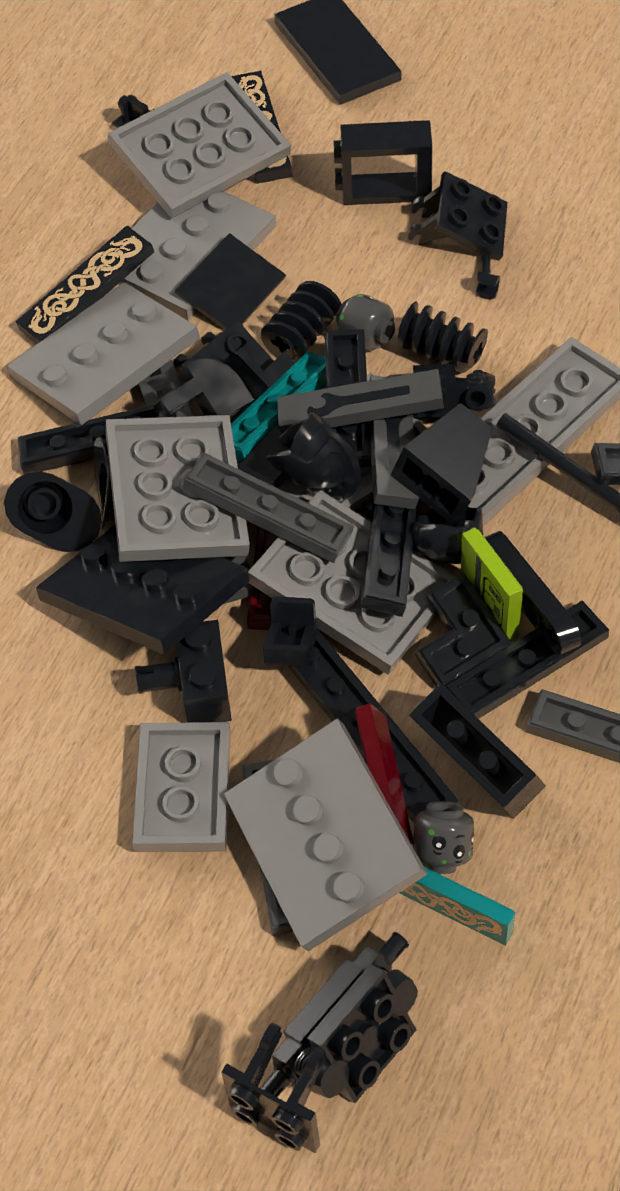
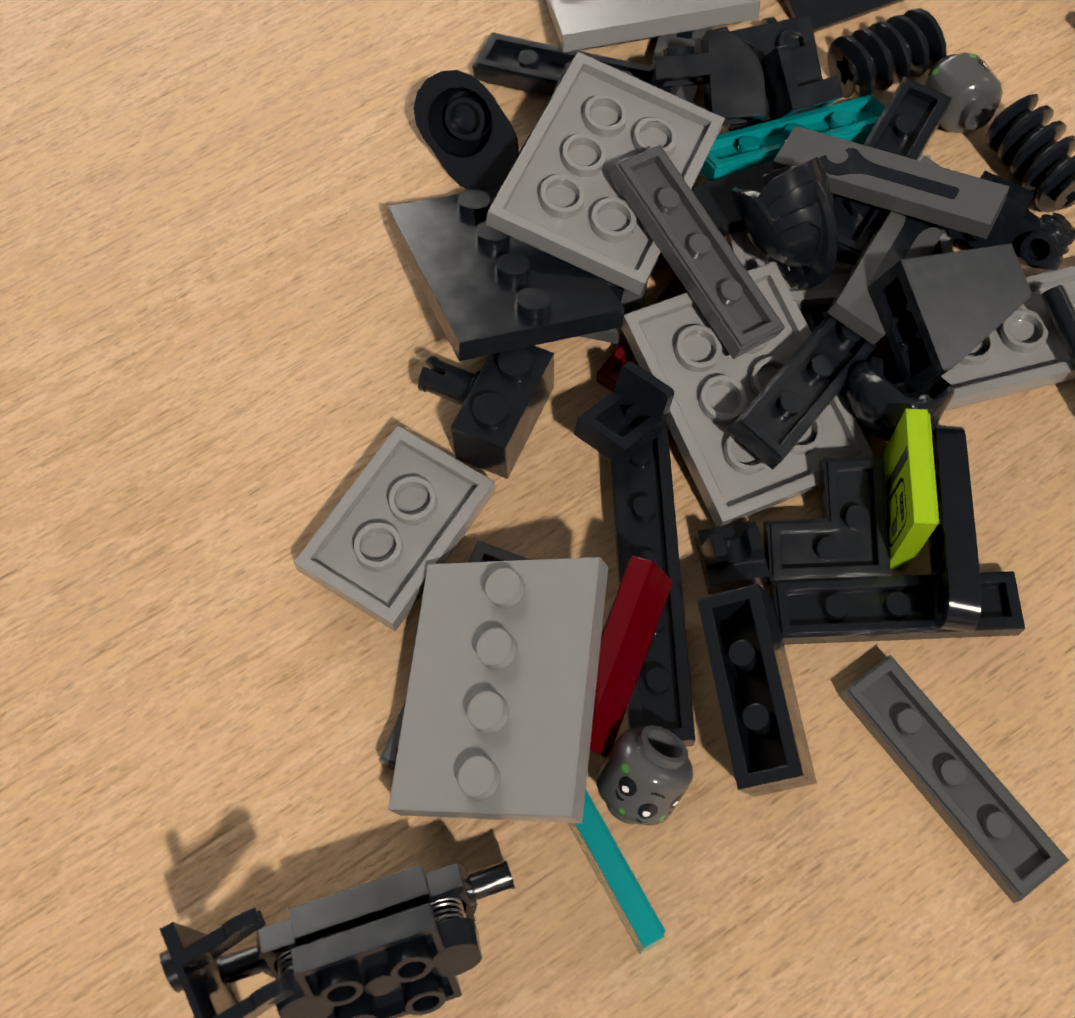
camera: 30 degrees right, 10 degrees up
(407, 685) = (732, 557): none -> black tile

